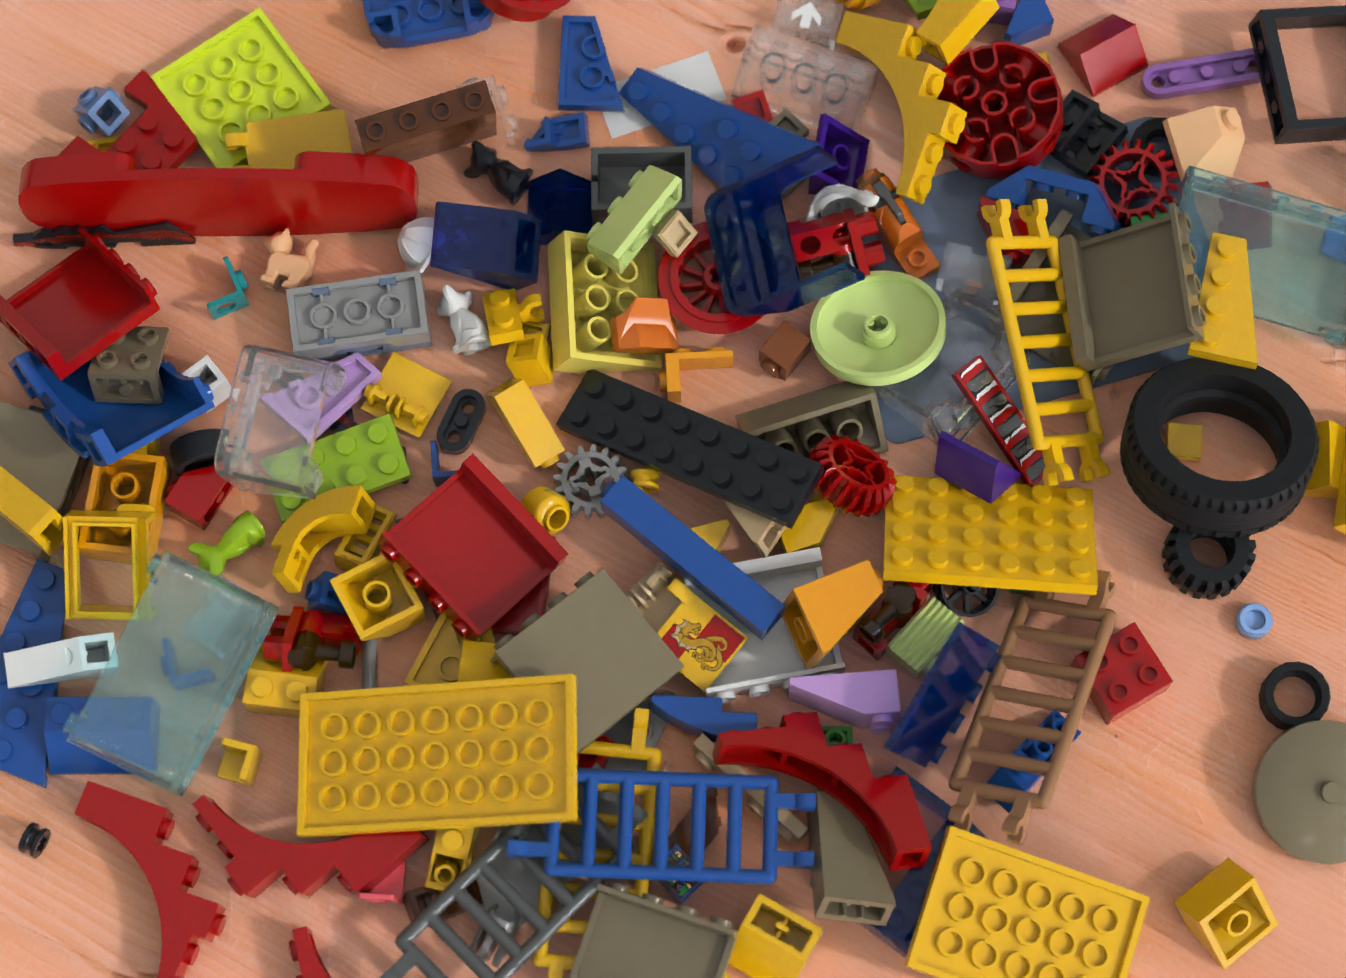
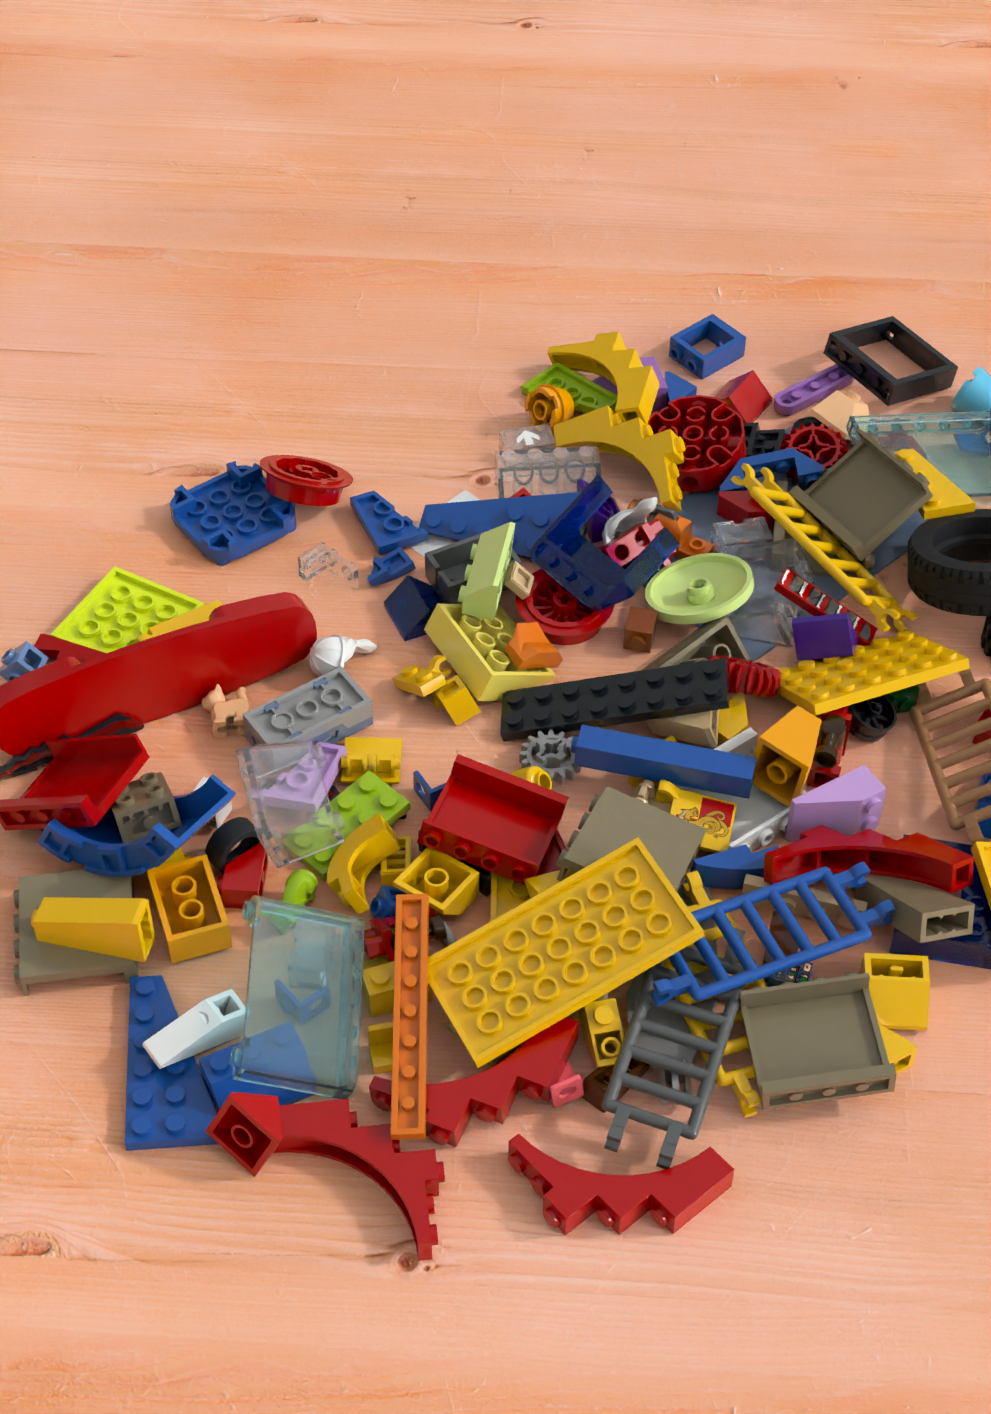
camera: 30 degrees left, 25 degrees down
(34, 840) = (241, 1179): black bush -> none
(57, 799) = (248, 1128): none -> red slope
(127, 515) = (190, 996): yellow piece -> none
(237, 298) = (197, 738): teal bracket -> none
(260, 752) = (410, 1018): none -> orange plate
(430, 124) = (307, 564): reddish brown panel -> none
(461, 423) = (427, 757): black plate -> none
(467, 327) = (397, 697): white animal -> none
(487, 244) = (384, 635): clear blue slope -> none
(503, 175) = (365, 600): black animal -> none
(525, 422) = (477, 736): yellow slope -> none
(687, 360) = (572, 661): light orange bracket -> none
(923, 637) = (866, 749): yellowish green brick -> none
(943, 695) = (906, 772): clear blue slope -> none

